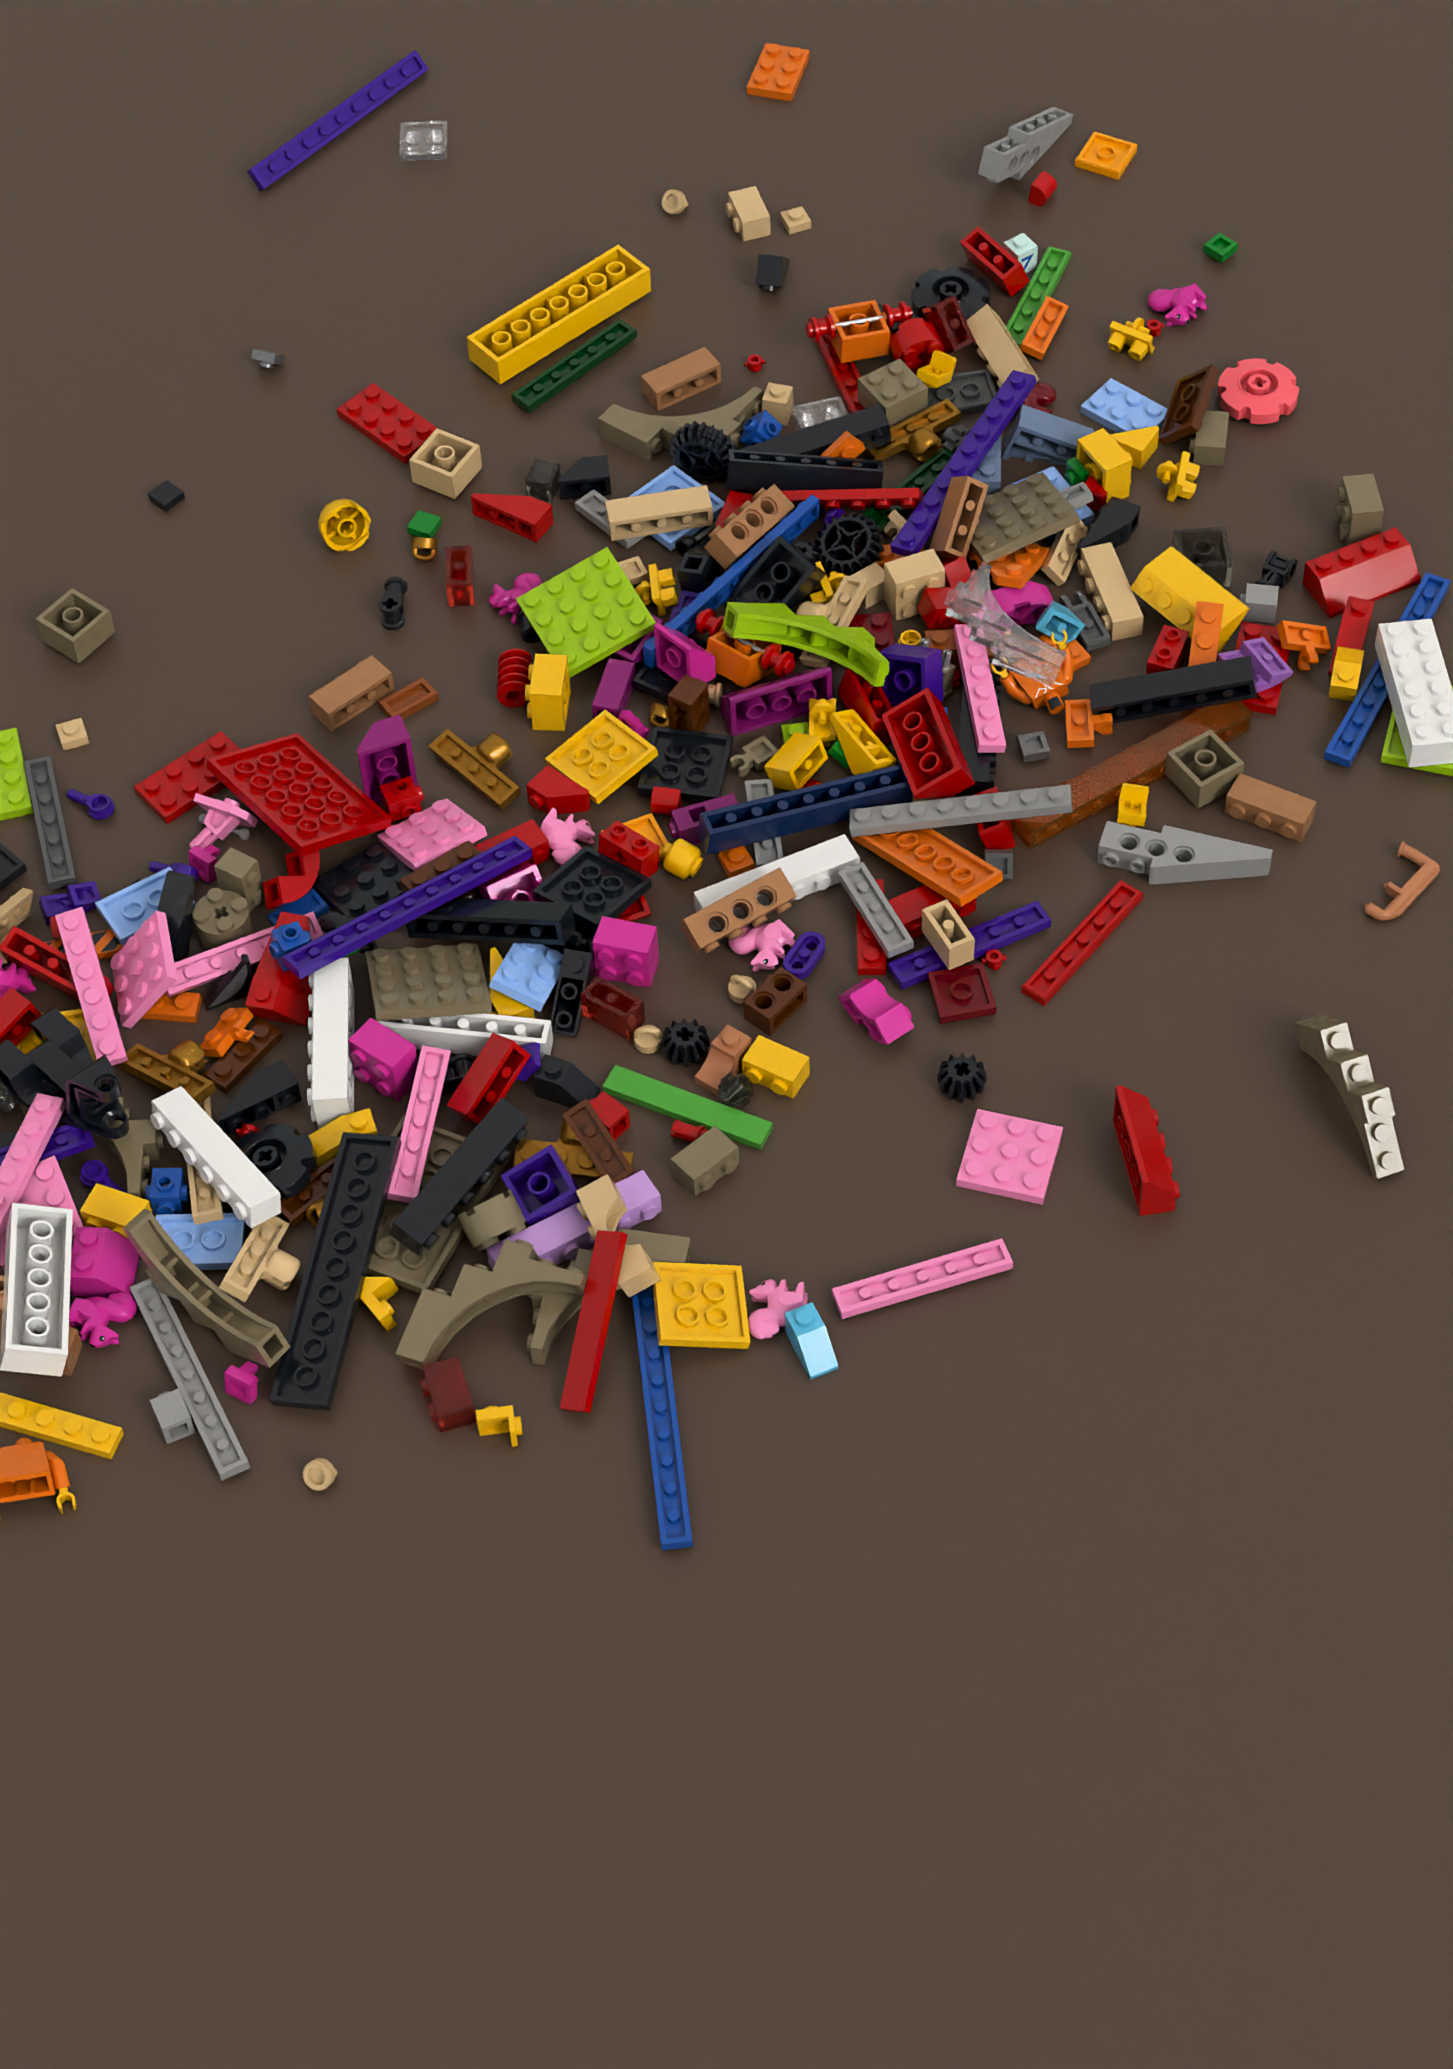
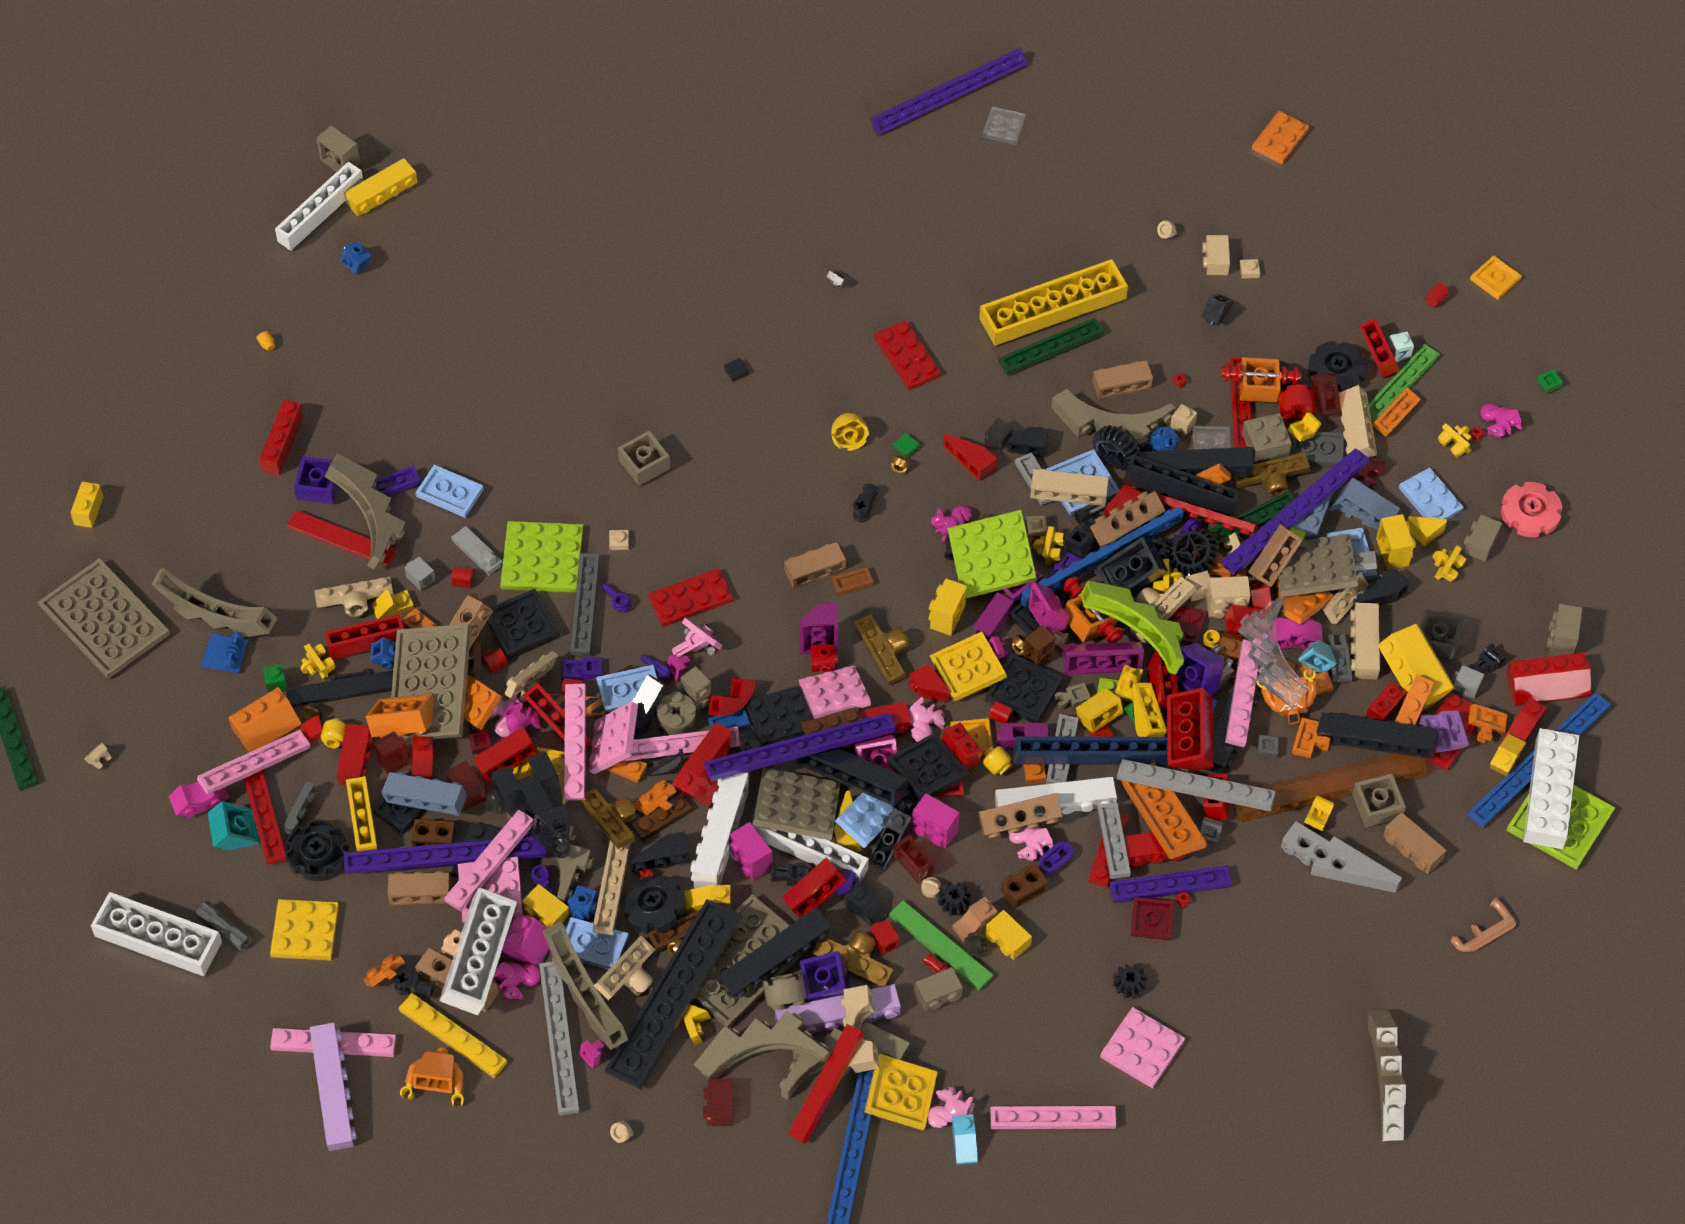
camera: 15 degrees right, 5 degrees up
(172, 1416) = (540, 1062): light grey brick -> none
(215, 1157) = (619, 891): white brick -> none
(287, 939) = (712, 749): blue brick -> none
(299, 793) = (754, 635): red plate -> none
(419, 1123) = (759, 906): bright pink plate -> none
(445, 463) = (934, 402): tan brick -> none
(460, 575) = (916, 496): clear red brick -> none
(499, 1420) = (746, 1130): yellow bracket -> none
(513, 677) = (927, 586): red piece -> none
(598, 1141) = (870, 957): reddish brown plate -> none
(740, 987) = (1005, 868): tan tile -> none
(878, 1011) = (1091, 918): dark pink brick -> none
(948, 934) = (1154, 875): tan brick -> none
(954, 437) = (1298, 486): dark grey gear -> none
(1023, 145) = (1436, 254): light grey brick -> none
(1075, 472) = (1375, 540): green plate -> none
(1082, 943) = (1248, 905): red tile -> none
(1098, 492) = (1382, 560): red slope -> none
(1144, 1152) = (1231, 1074): red slope -> none
(1188, 405) = (1474, 509): reddish brown plate -> none

